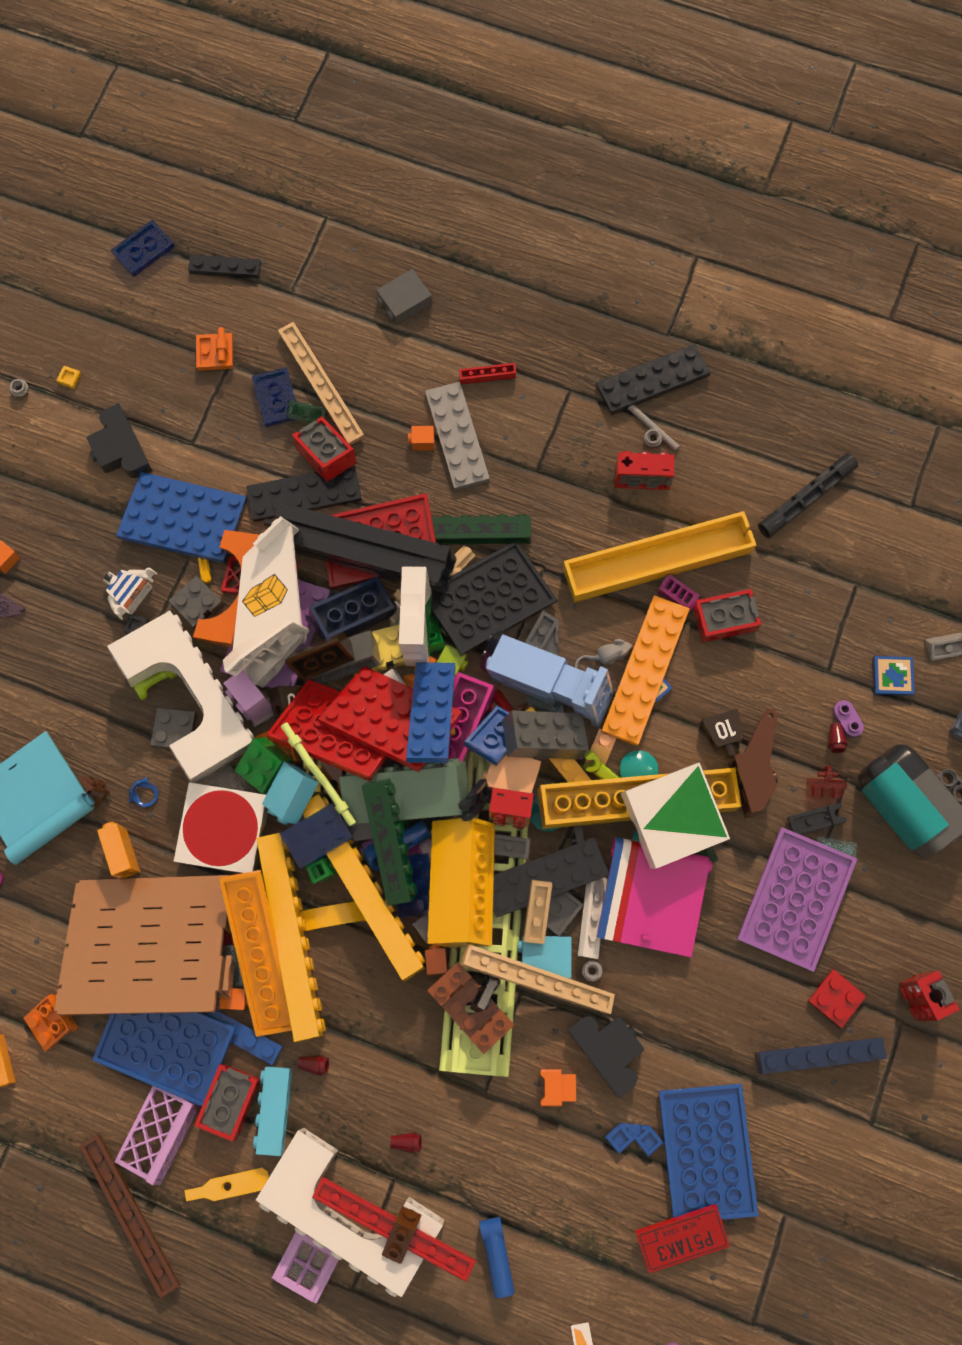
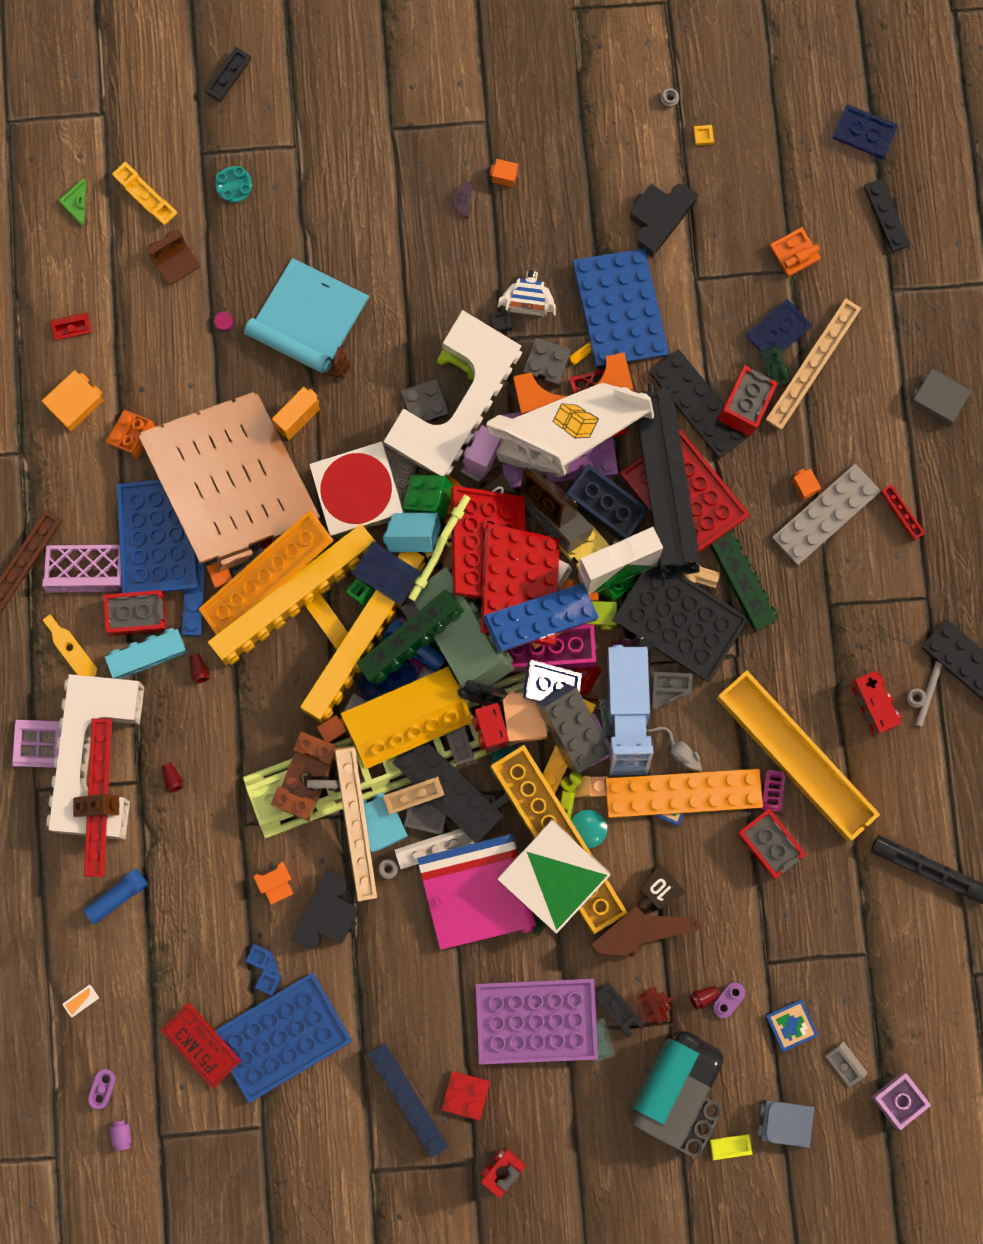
camera: 60 degrees right, 5 degrees up
(133, 796) = (349, 402): blue piece -> none

